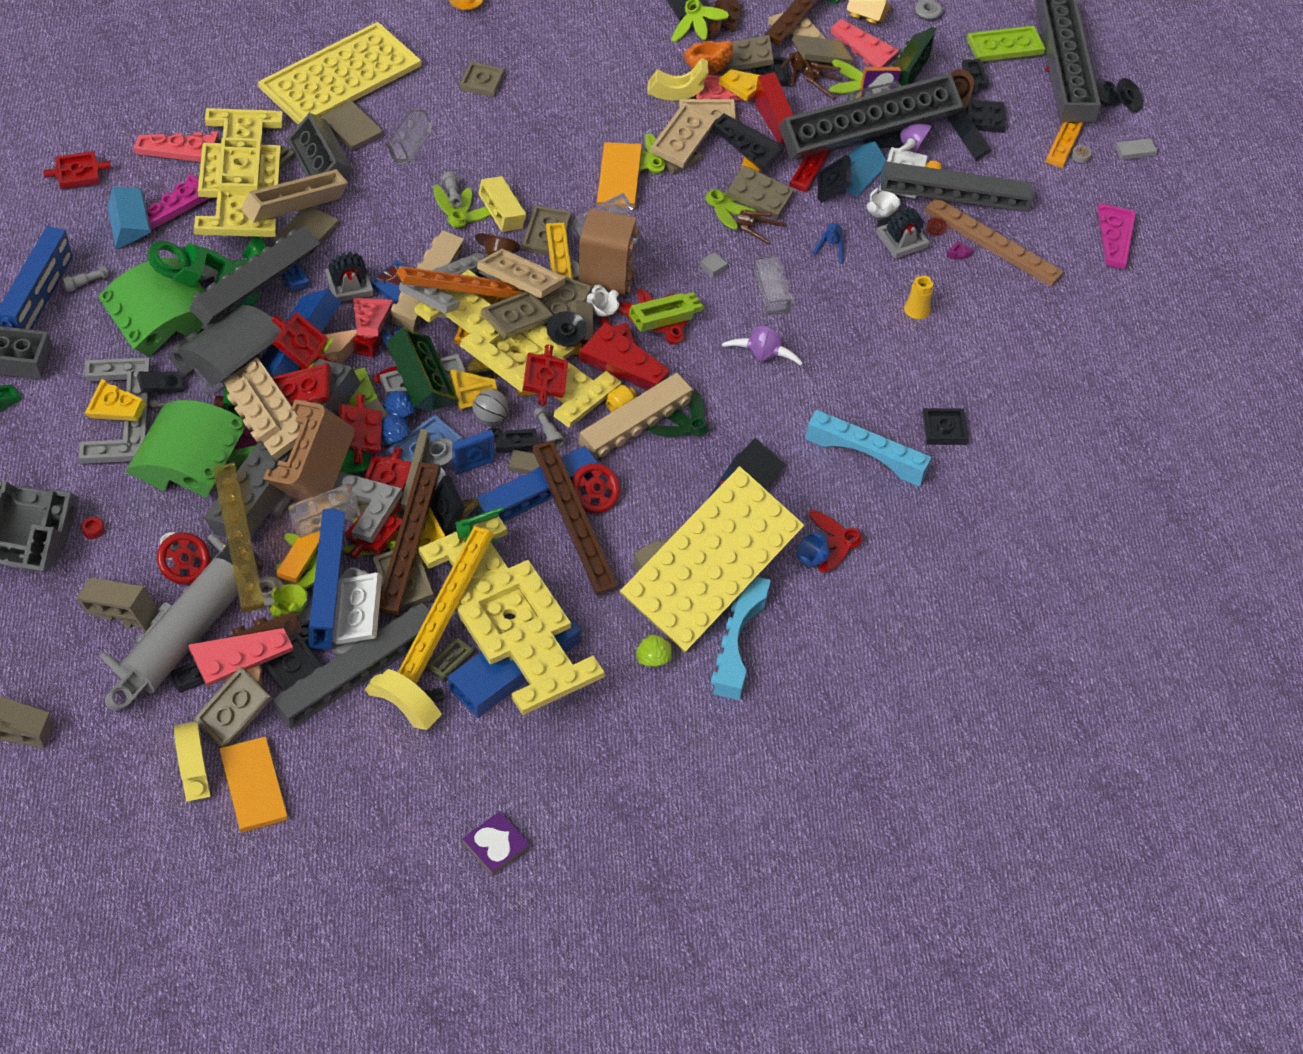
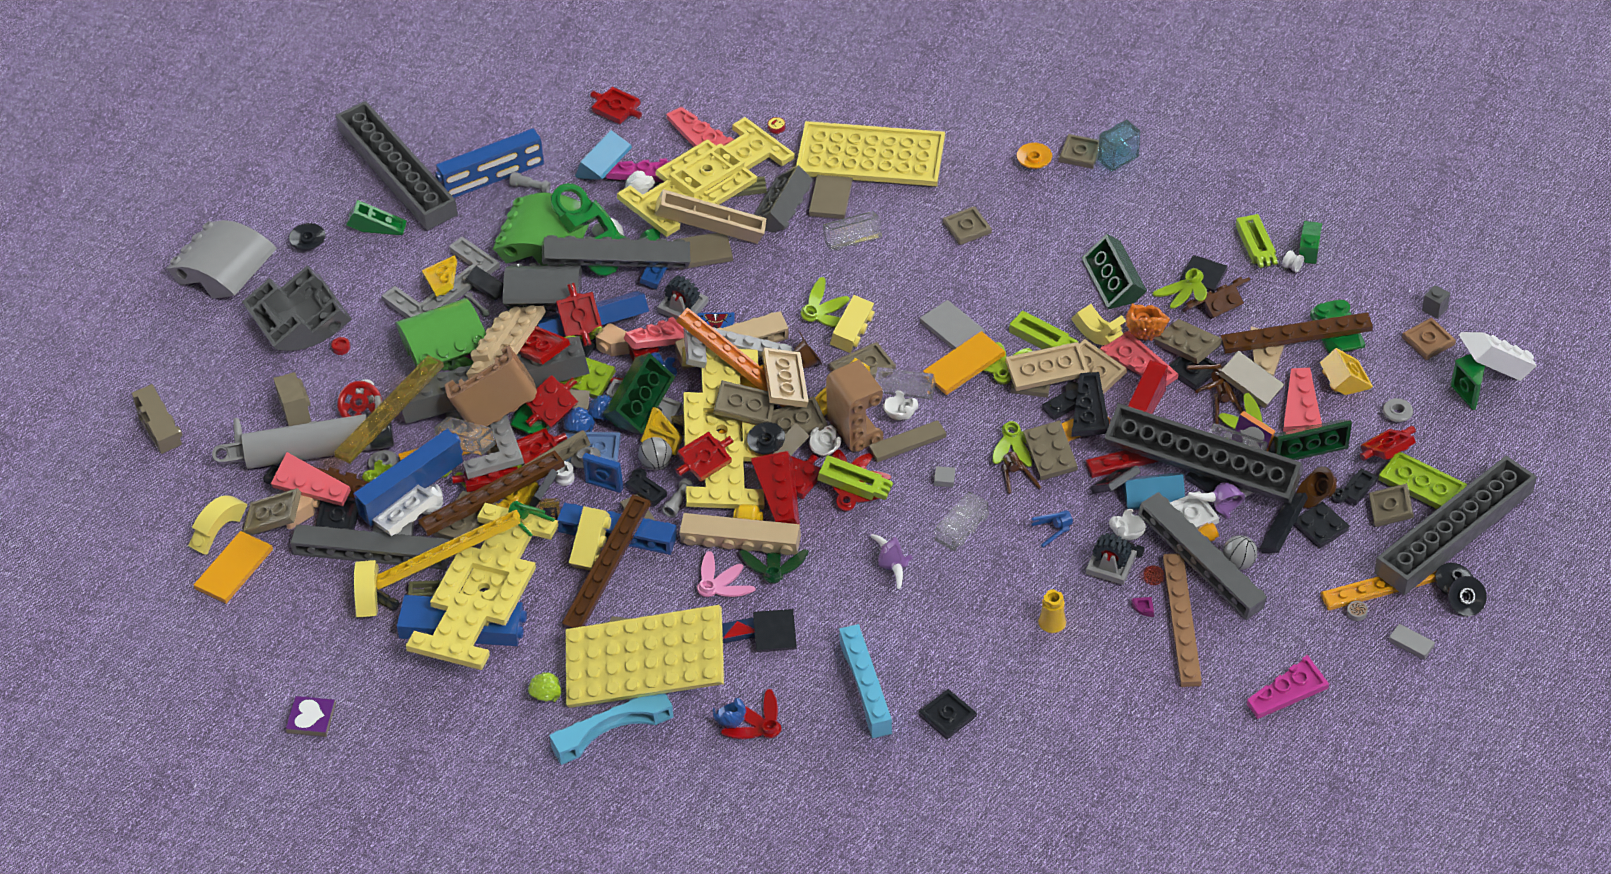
camera: 55 degrees right, 5 degrees down
(185, 216) = (640, 182): none -> white hair
(234, 100) = (776, 125): none -> tile
(450, 182) = (840, 283): light grey piece -> none
(536, 508) = (589, 537): none -> light yellow brick
(571, 156) = (950, 324): none -> light grey tile
(612, 484) = (664, 564): red plate -> none
(633, 42) = (1113, 273): none -> dark green slope
(641, 117) = (1038, 331): none -> lime hinge
(653, 259) = (907, 441): none -> dark tan tile
(663, 472) = (709, 586): none -> bright pink plant
(720, 153) = (1062, 403): none -> black hinge
(740, 83) = (1143, 354): yellow wing -> none
(958, 32) = (1388, 443): none -> red plate
(974, 163) = (1240, 551): none -> light grey piece
(1010, 71) = (1391, 505): none -> dark tan tile

